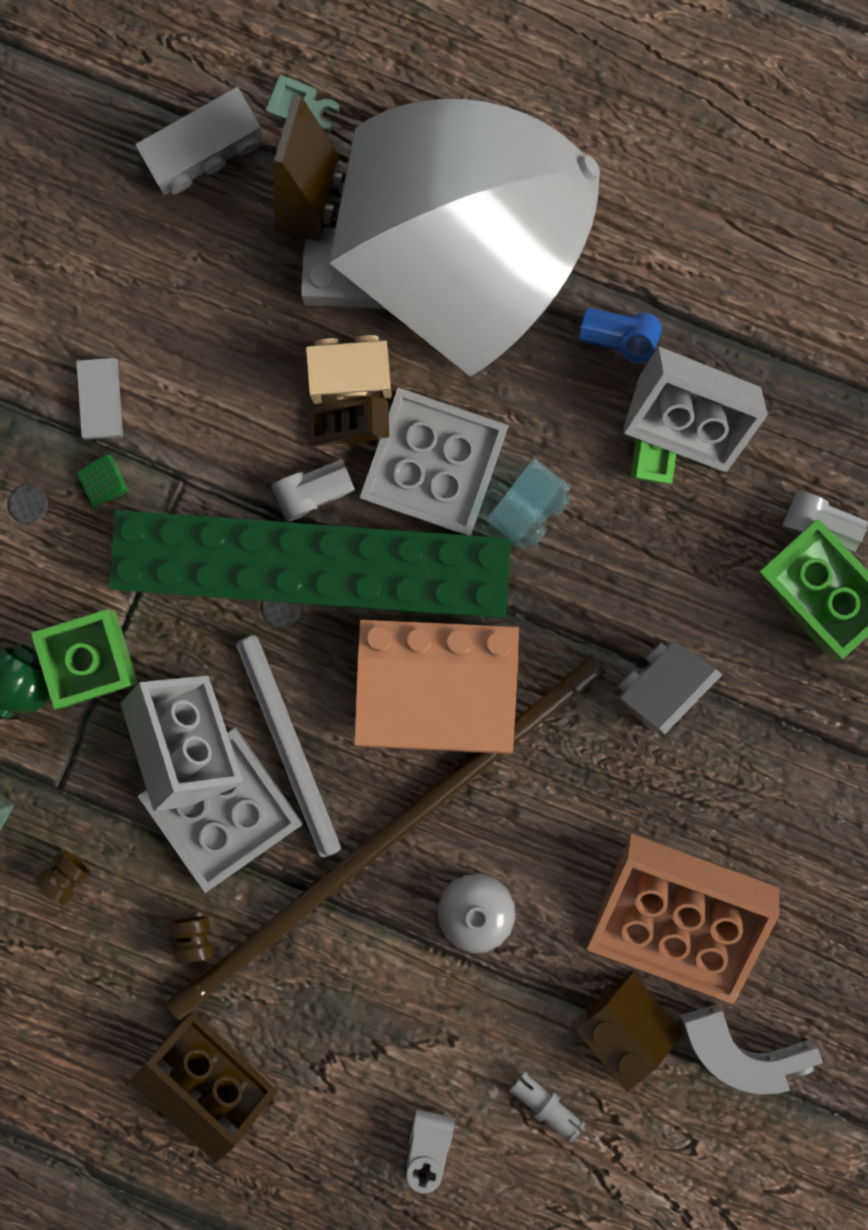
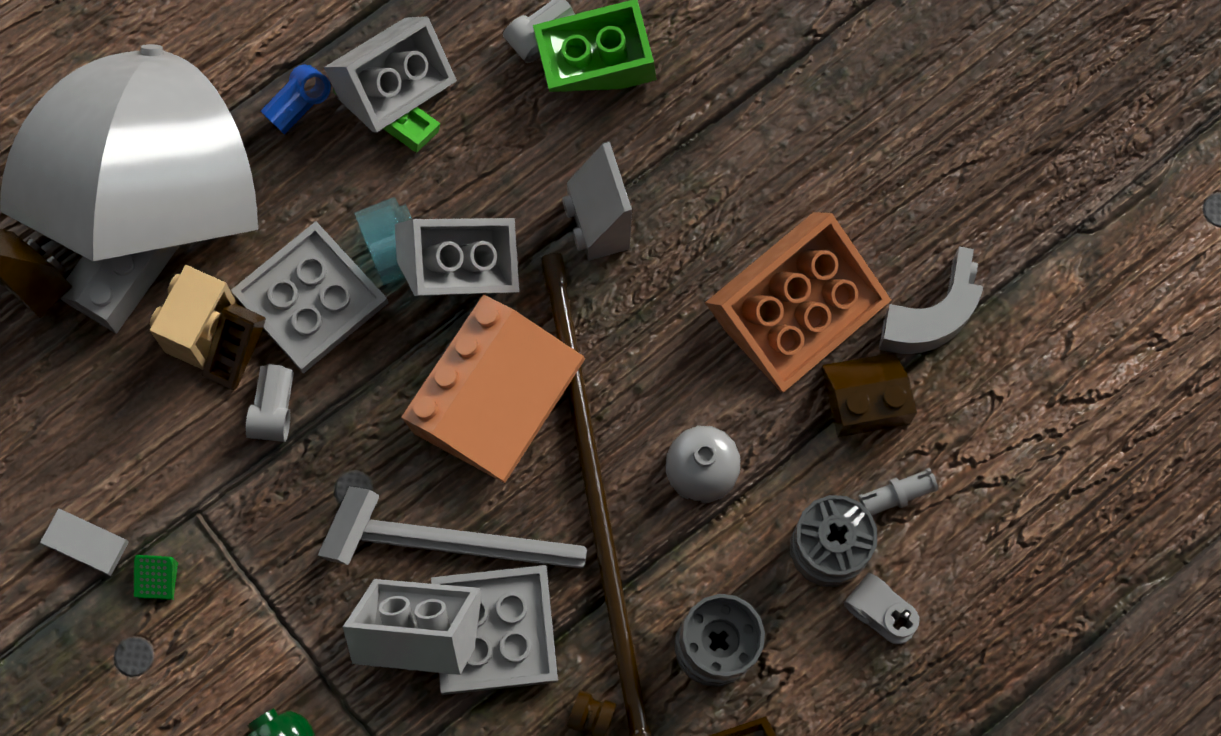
camera: 60 degrees left, 15 degrees down
(84, 659) = (296, 670): bright green brick -> none
(241, 626) = (348, 525): none -> light grey tile
(310, 564) = (327, 446): dark green brick -> none
(319, 1043) = (734, 624): none -> dark grey wheel
(454, 1054) = (833, 562): none -> dark grey wheel
(541, 583) = (458, 255): none -> light grey slope

